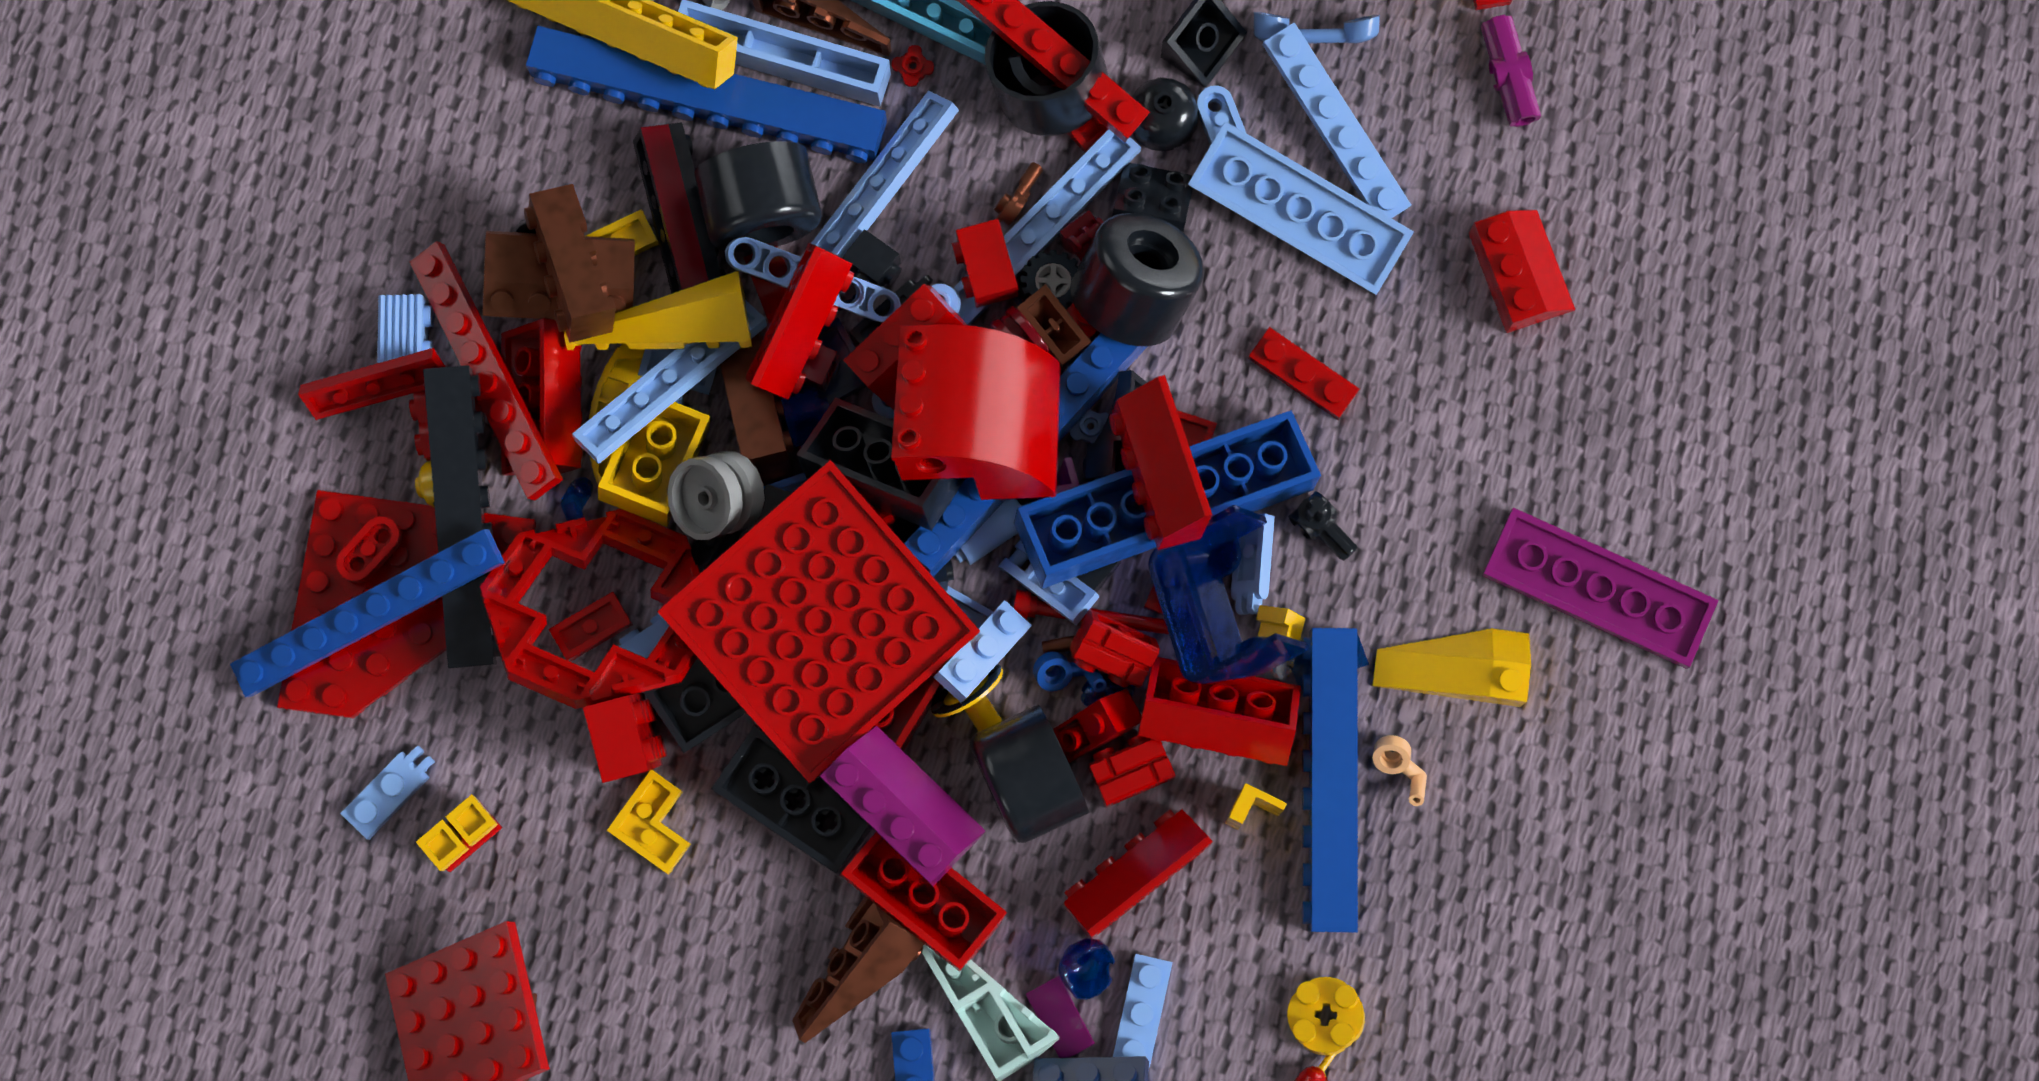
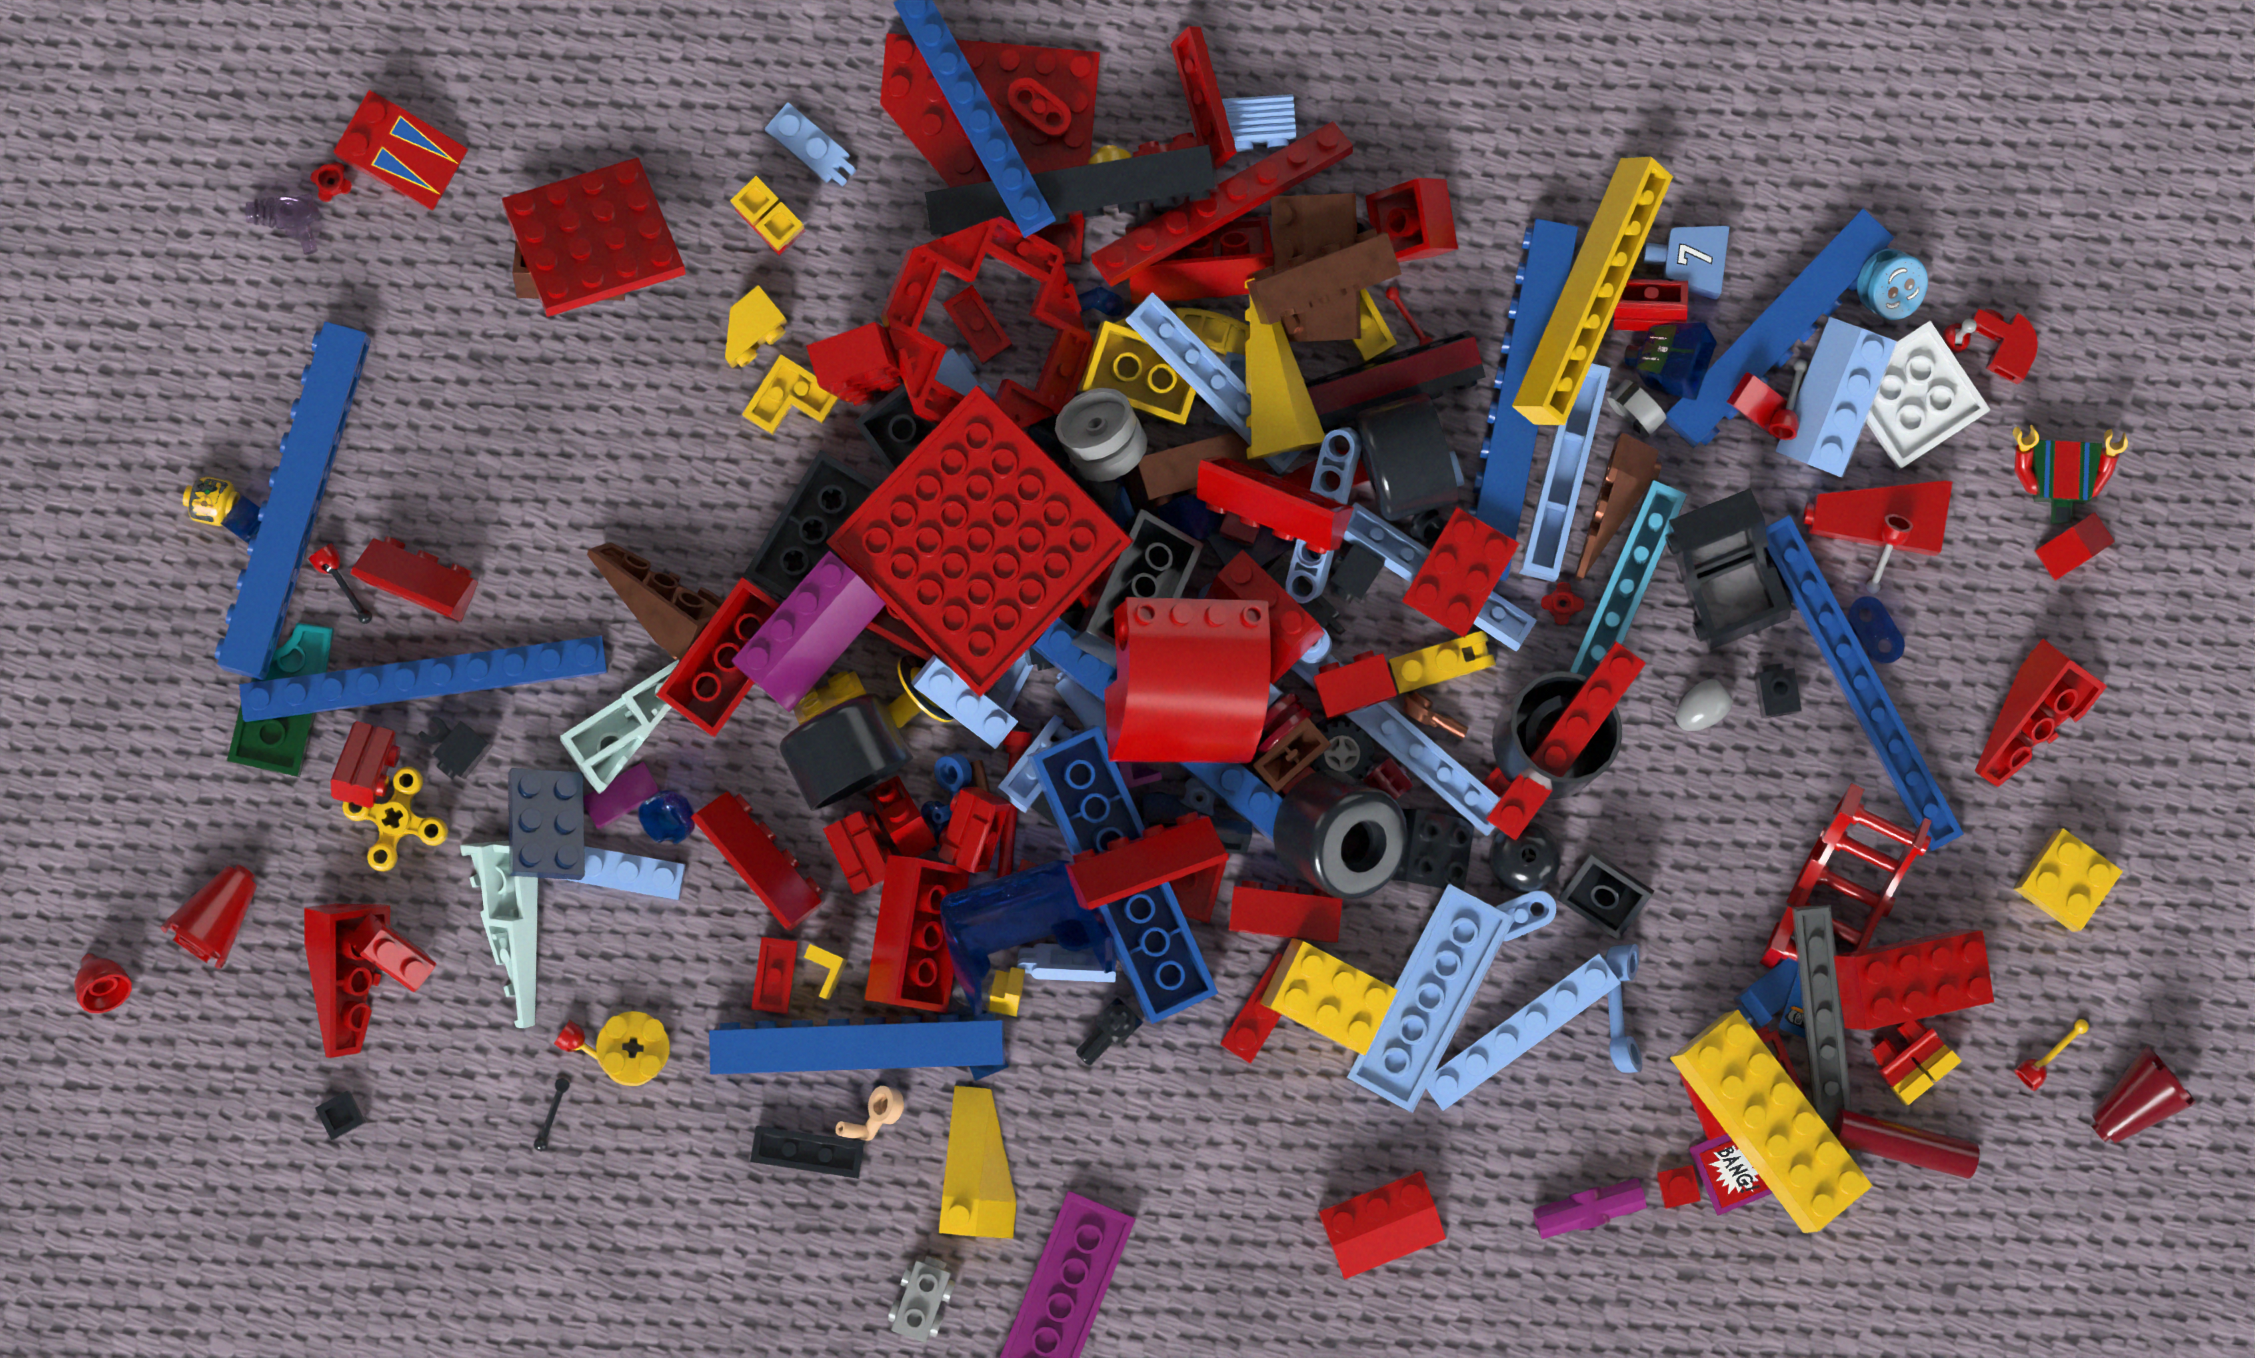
camera: 85 degrees right, 5 degrees up
(508, 178) = (1415, 218): none -> red slope
(572, 860) = (750, 325): none -> yellow slope
(591, 213) = (1392, 294): none -> red hinge
(828, 190) = (1427, 526): none -> black plate
(877, 154) = (1460, 572): none -> red plate
(964, 181) = (1440, 662): none -> yellow plate
(965, 782) = (840, 689): none -> yellow hinge
(1210, 346) = (1285, 912): none -> red brick
(1254, 864) = (774, 975): none -> red plate
(1296, 305) = (1328, 996): none -> yellow brick
(1437, 837) = (807, 1152): none -> black plate
(1582, 722) = (926, 1287): none -> light grey brick

